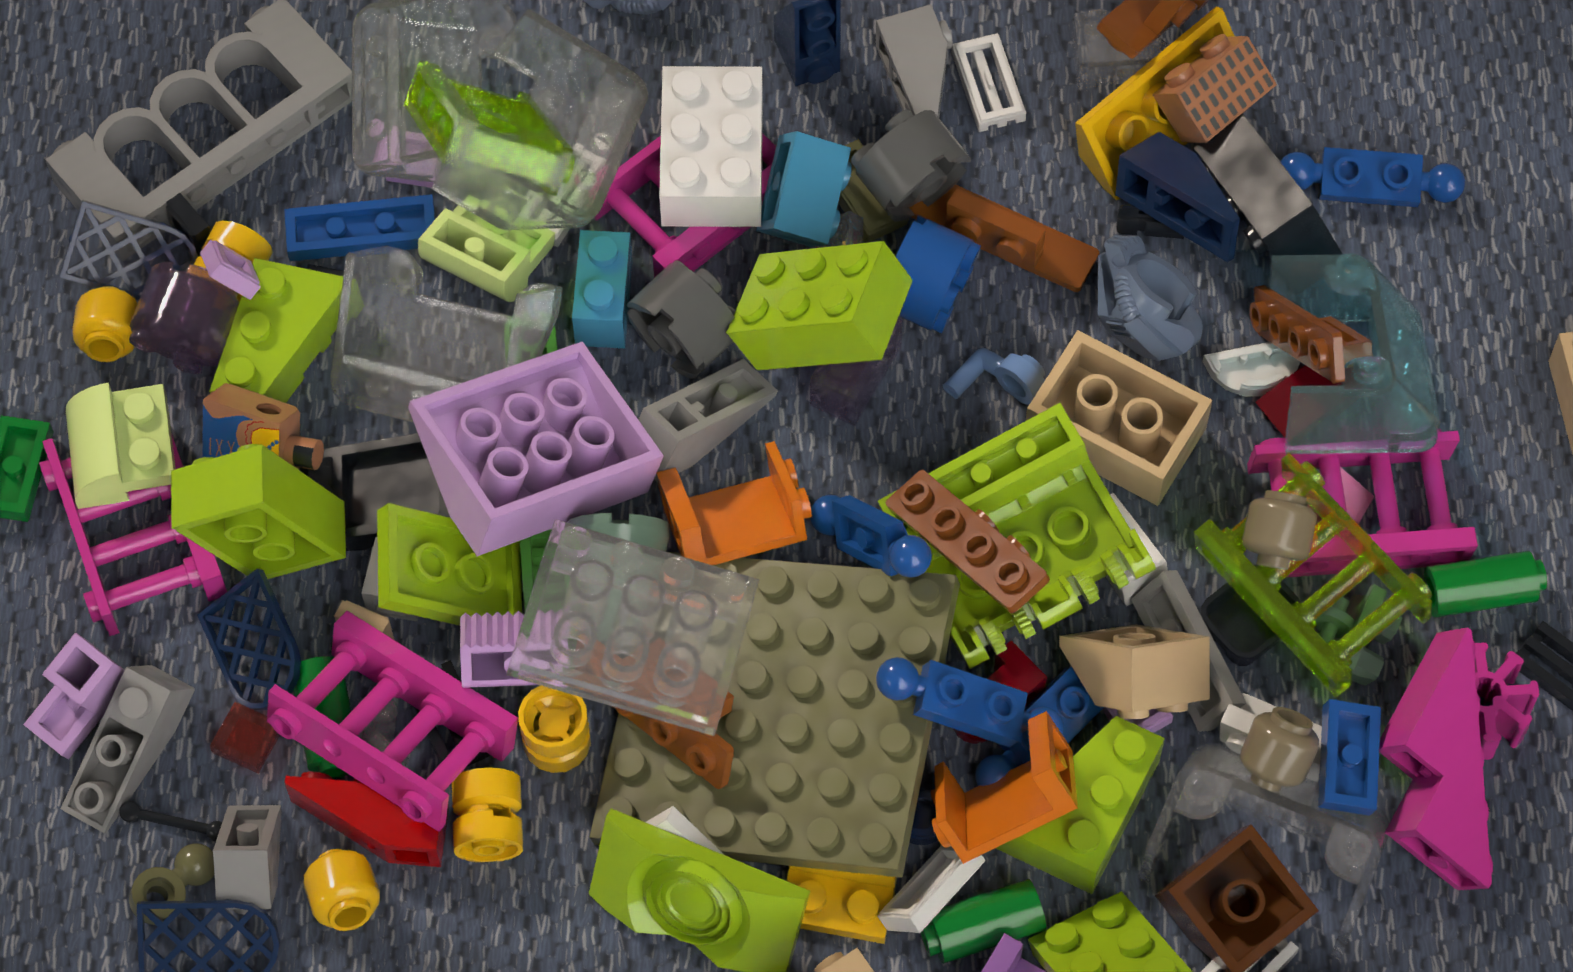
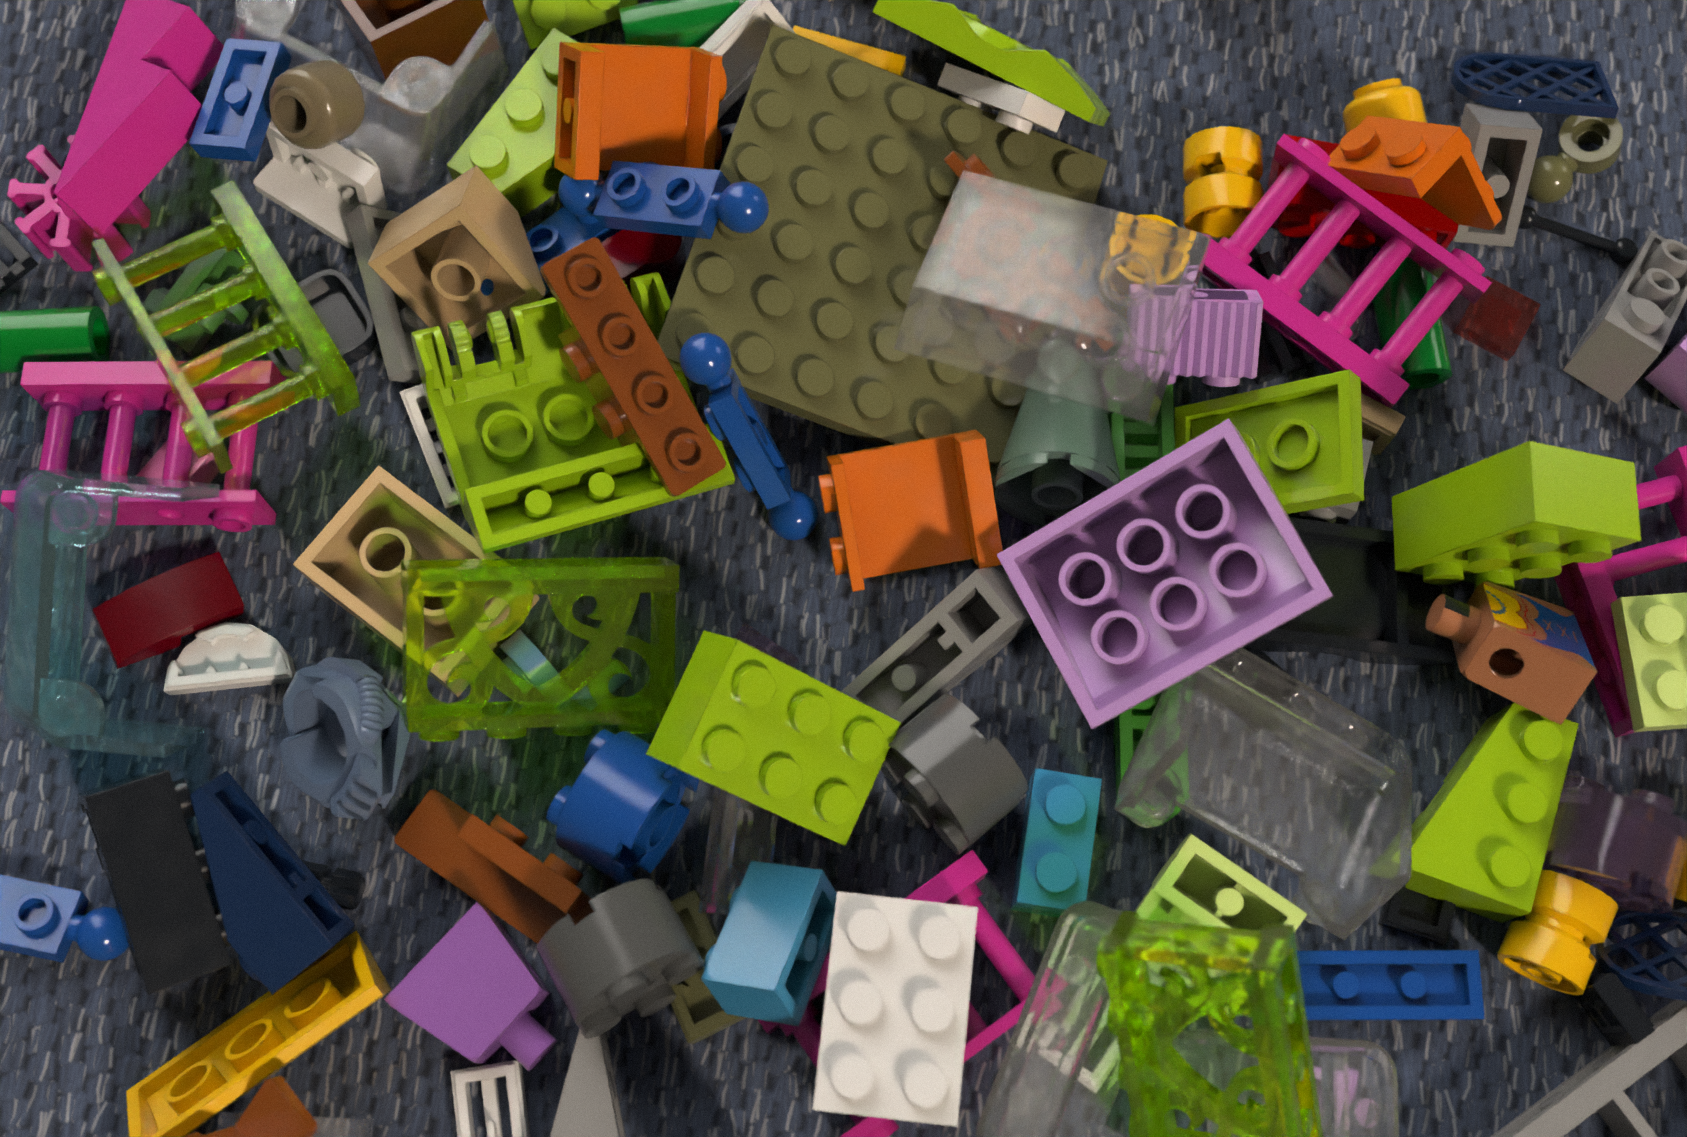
camera: 175 degrees left, 10 degrees up
(230, 269) = (1569, 876): lavender tile -> none
(257, 580) = (1510, 378): dark blue window -> none
(332, 801) = (1419, 163): none -> orange bracket
(985, 400) = (463, 591): none -> clear neon green fence
(1016, 156) = (477, 993): none -> medium lavender torso
(1213, 88) = (176, 1040): nougat brick -> none
(1279, 529) = (247, 348): dark tan head -> none
(1316, 342) = (135, 626): dark orange bracket -> none

